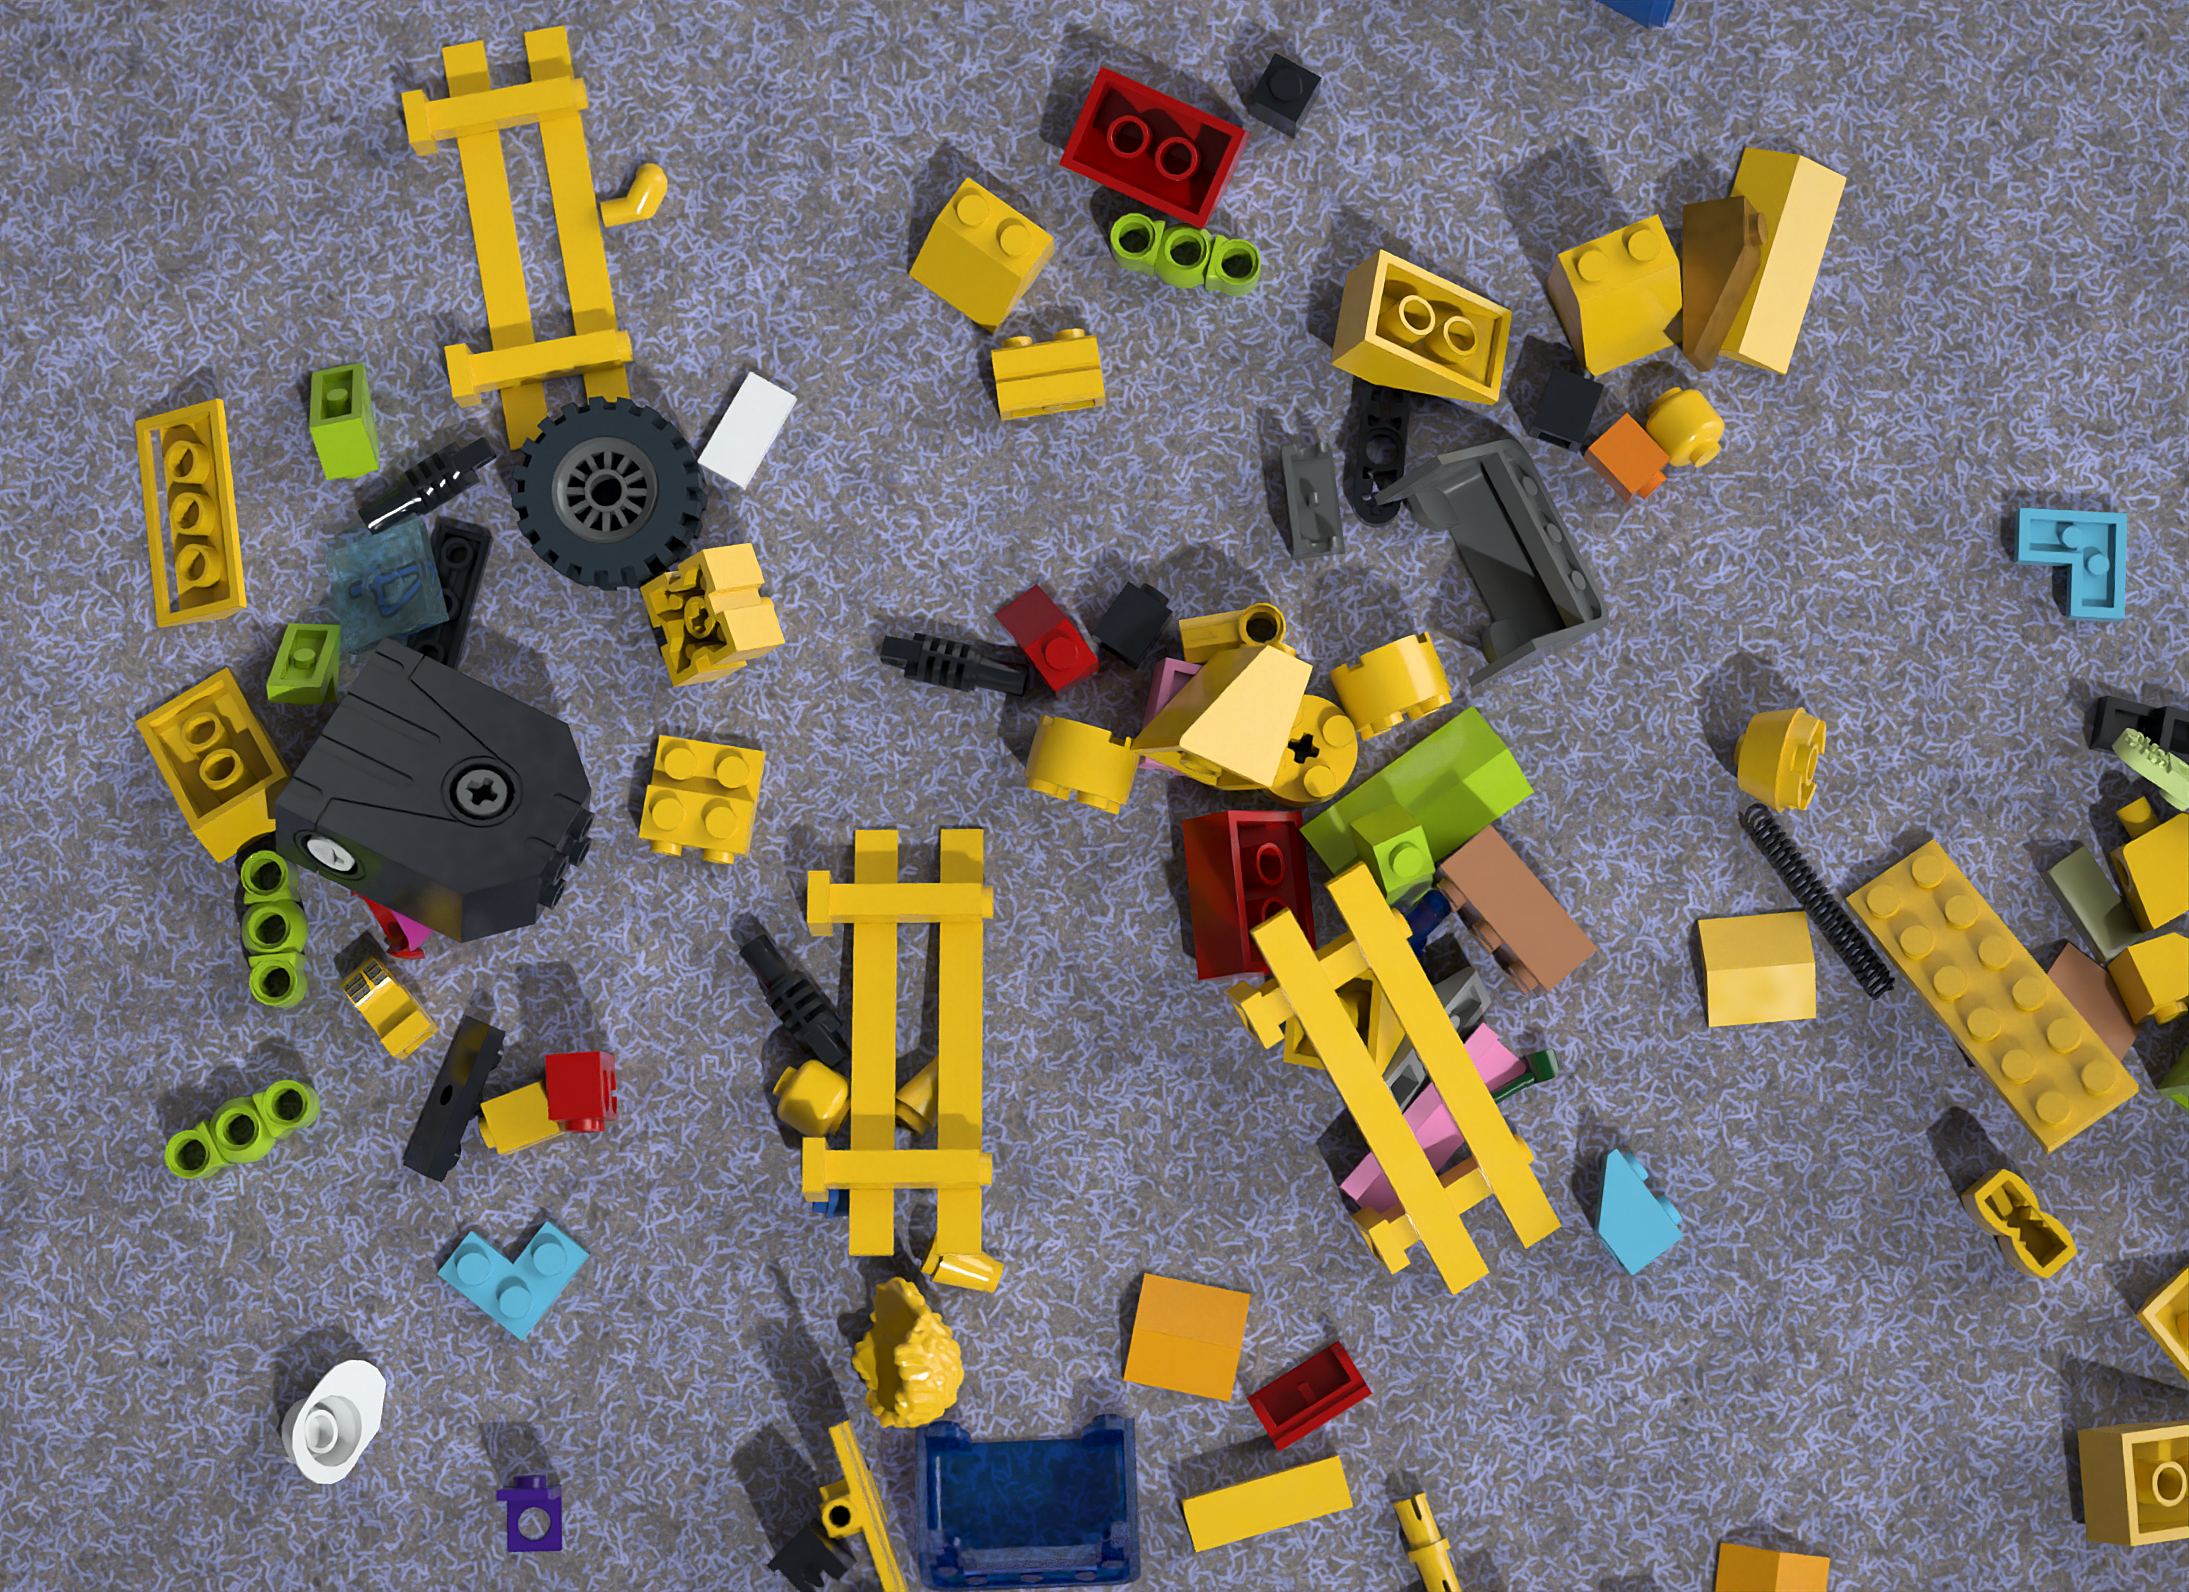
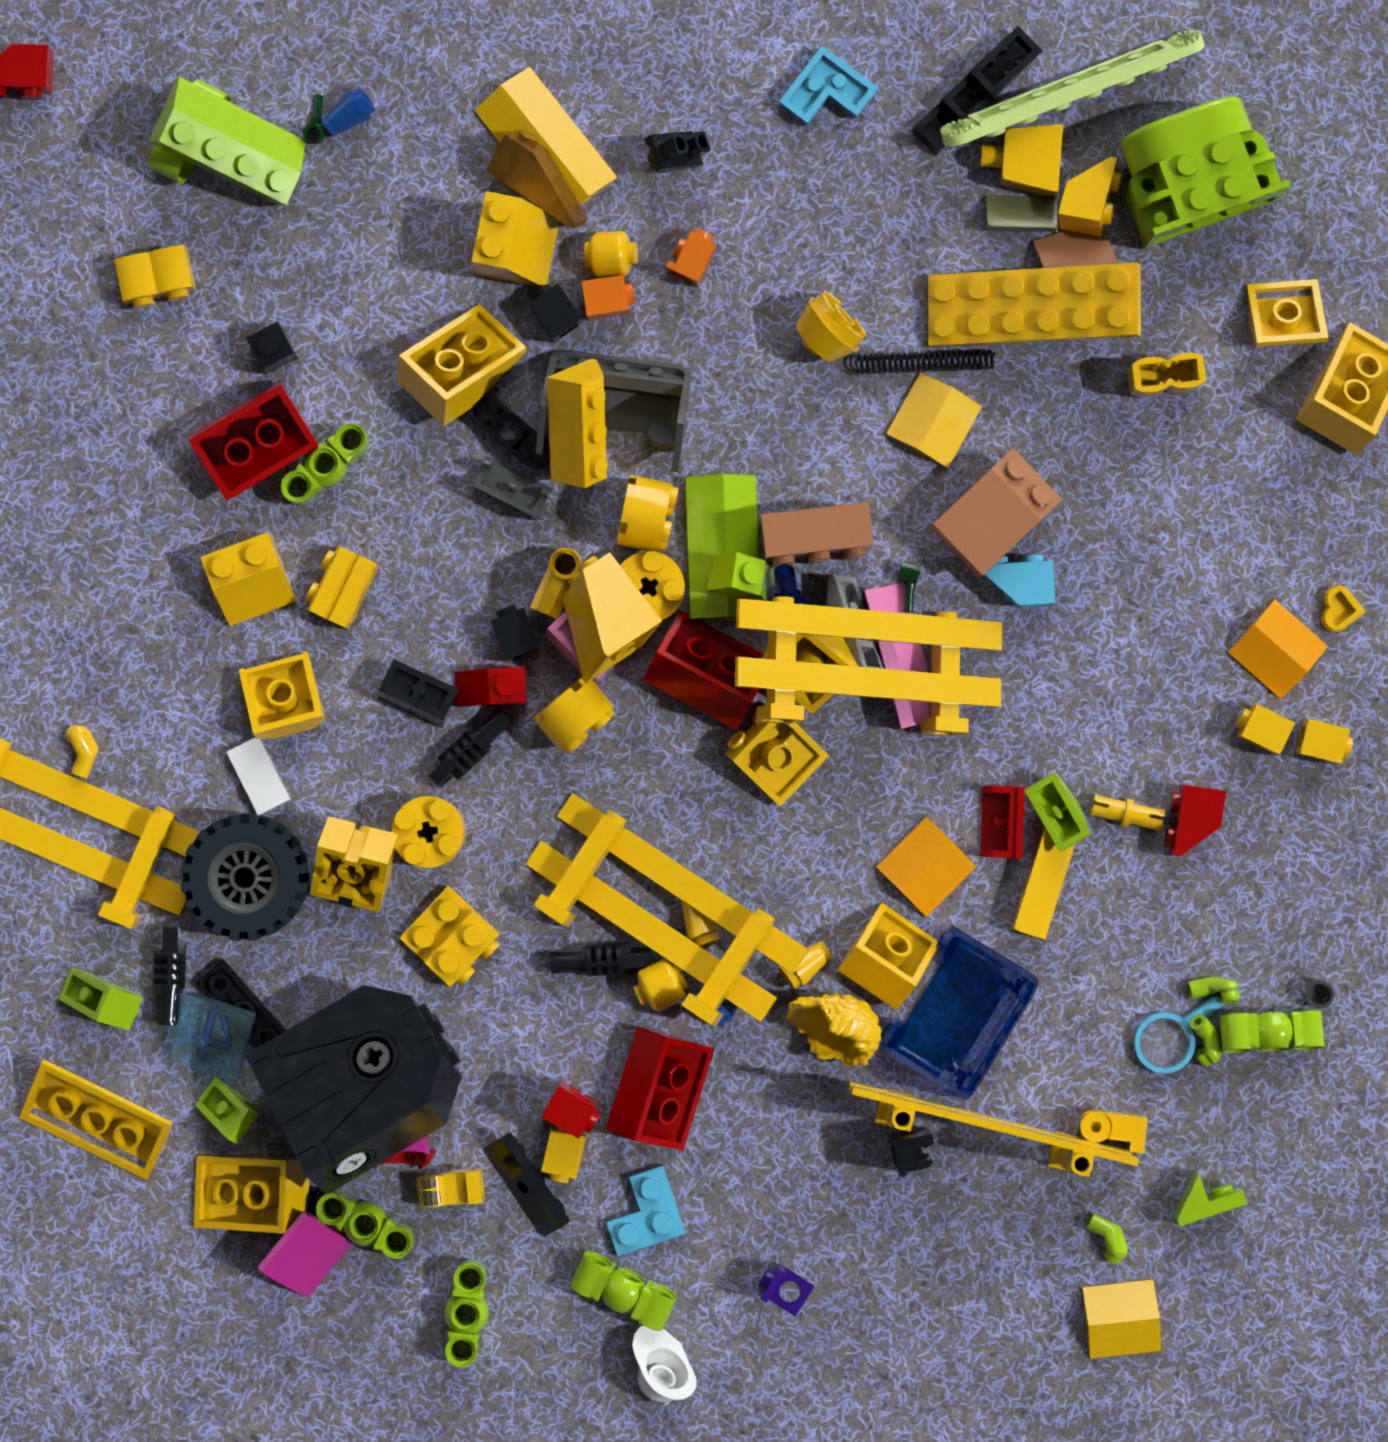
camera: 65 degrees left, 5 degrees up
(186, 878) = (305, 1254): none -> dark pink slope
(397, 1309) = (623, 1290): none -> lime piece
(682, 1186) = (660, 1089): none -> red slope
(815, 713) = (439, 814): none -> yellow brick
(862, 393) = (282, 697): none -> yellow slope
(978, 554) = (417, 693): none -> black hinge
(1041, 1365) = (889, 956): none -> yellow slope
(1198, 1052) = (776, 757): none -> yellow plate
(1370, 1459) = (1058, 811): none -> lime slope
(1444, 521) = (577, 425): none -> yellow slope
(1695, 1123) = (996, 513): none -> nougat slope
(1751, 530) = (692, 257): none -> orange brick
(1870, 422) = (676, 150): none -> black hips

